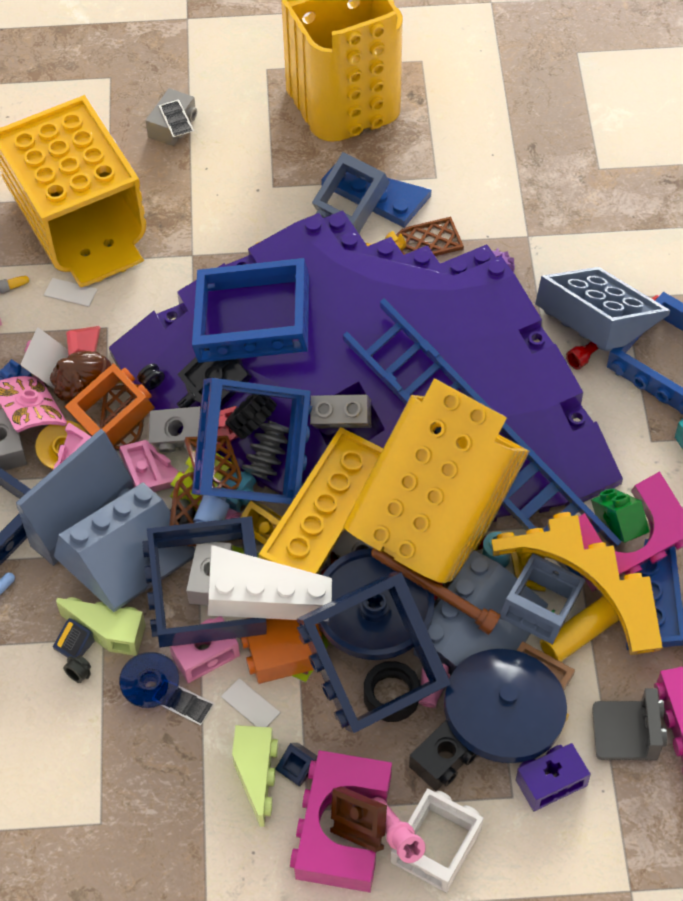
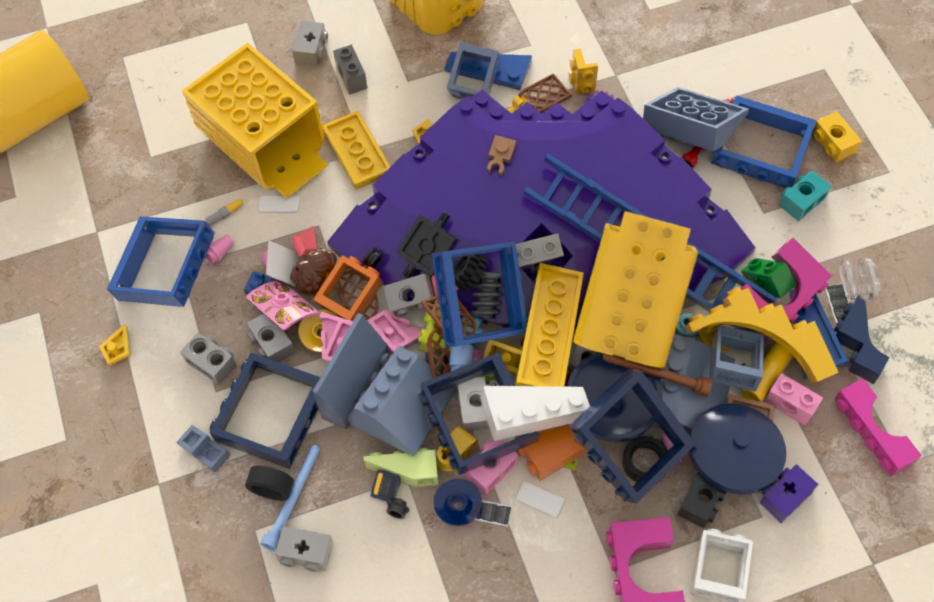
camera: 15 degrees left, 5 degrees up
(176, 118) = (316, 43): sticker -> none
(178, 613) = (464, 443): none -> yellow piece
(180, 247) = (356, 149): none -> yellow tile
(207, 157) = (350, 69): none -> dark grey brick
(252, 342) = (451, 214): blue window -> none
(252, 760) = (560, 545): yellowish green slope -> none
(296, 763) = (593, 536): dark blue slope -> none
(334, 286) = (501, 151): none -> medium nougat plate
(358, 818) = (661, 568): reddish brown plate -> none
(402, 837) = (698, 572): bright pink pin -> none
(483, 224) = (582, 75): none -> yellow bracket
(600, 668) = (793, 399): none -> bright pink brick
(629, 728) = (831, 439): dark grey bracket -> none

